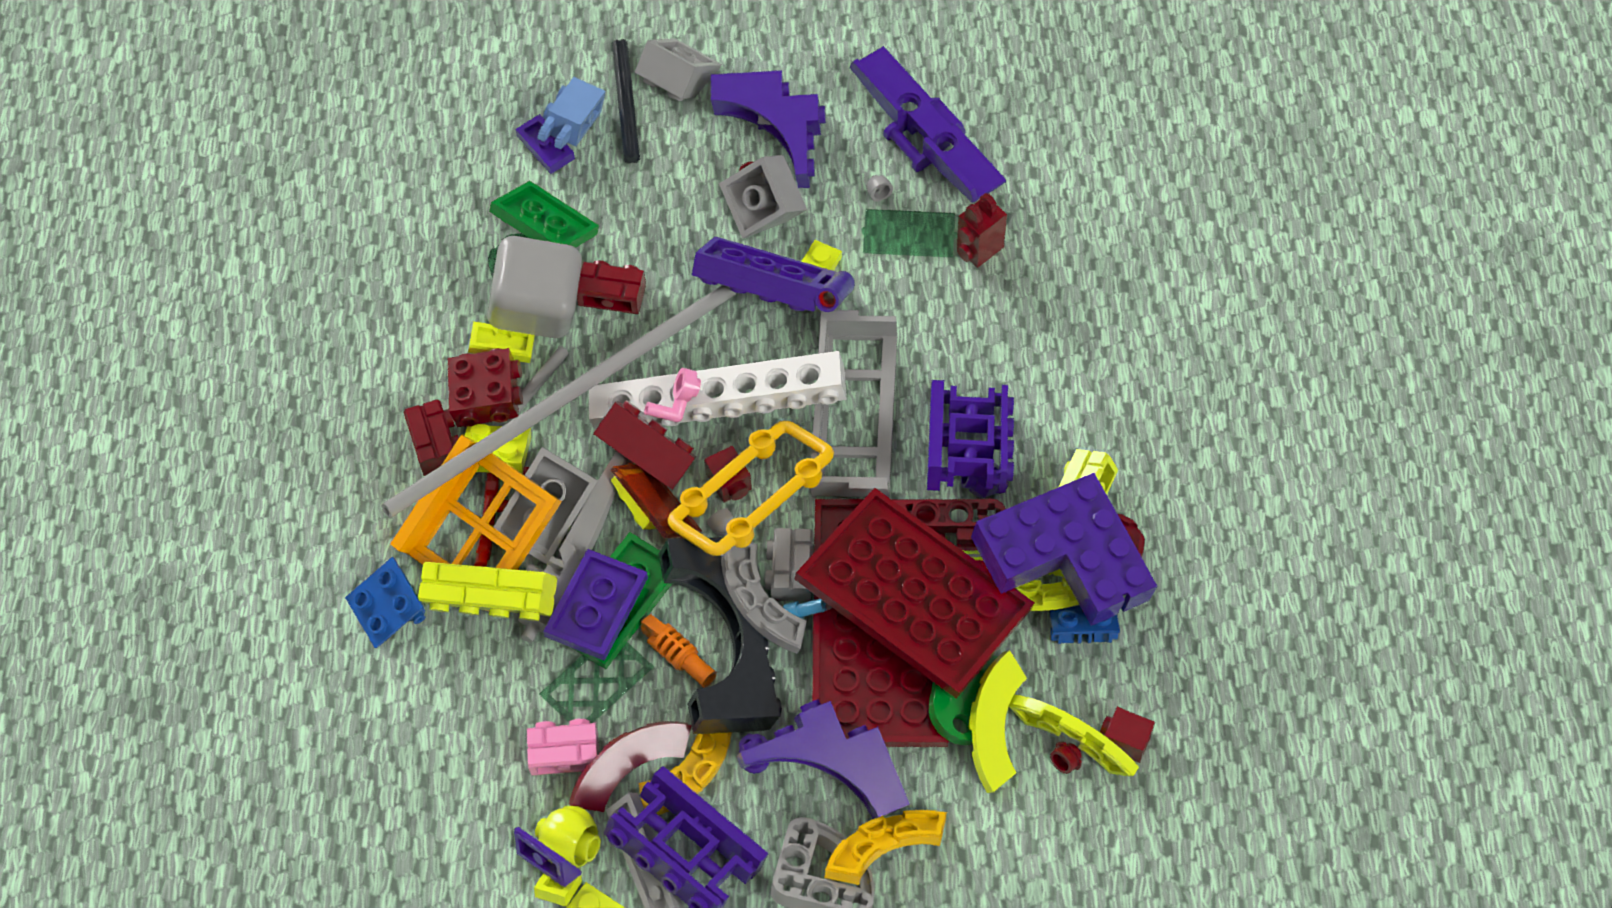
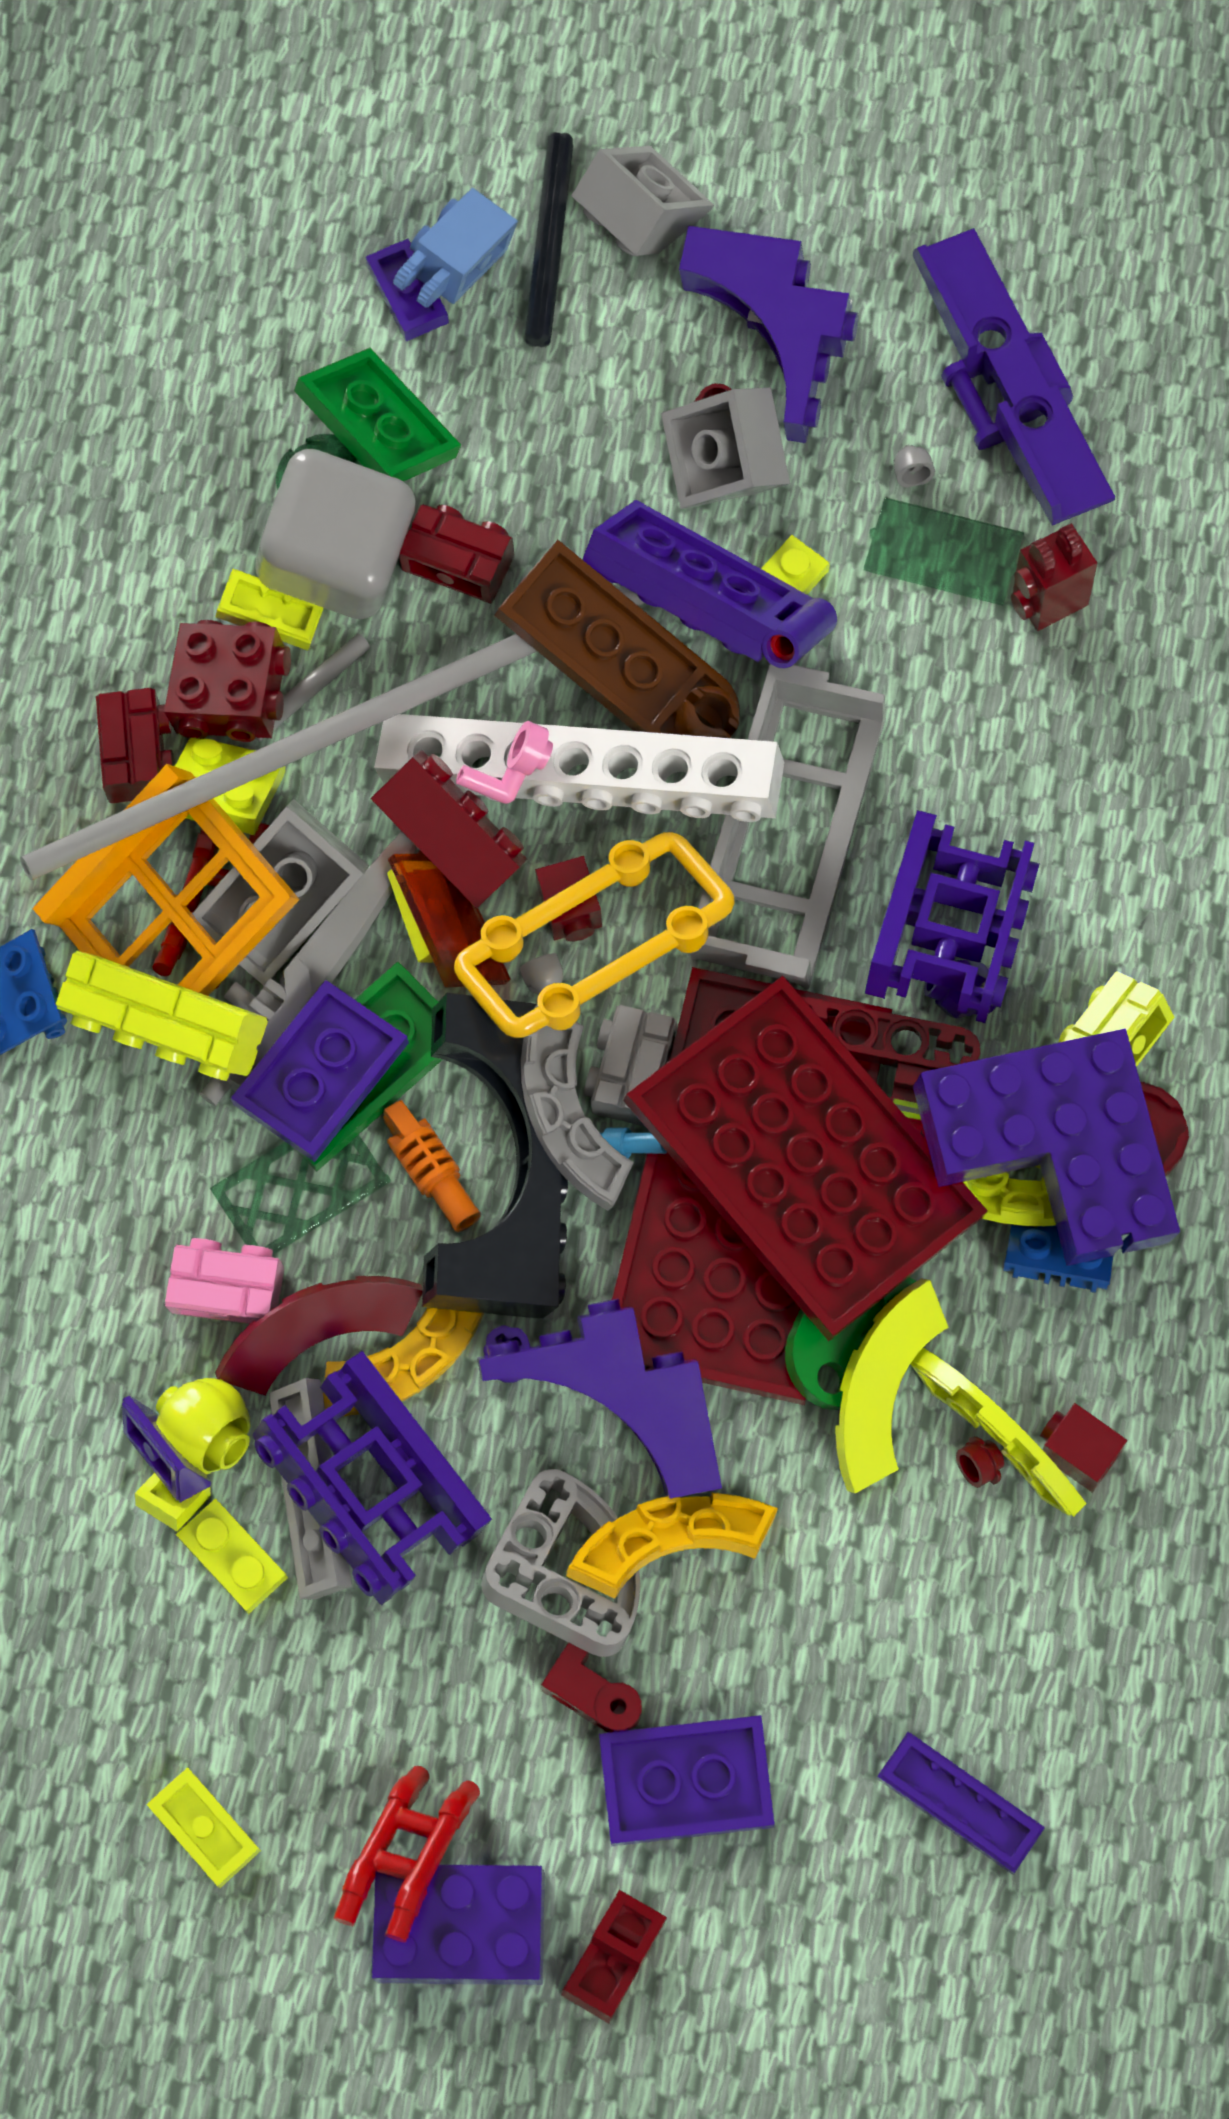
camera: 15 degrees right, 10 degrees up
(722, 321) = (617, 650): none -> reddish brown plate

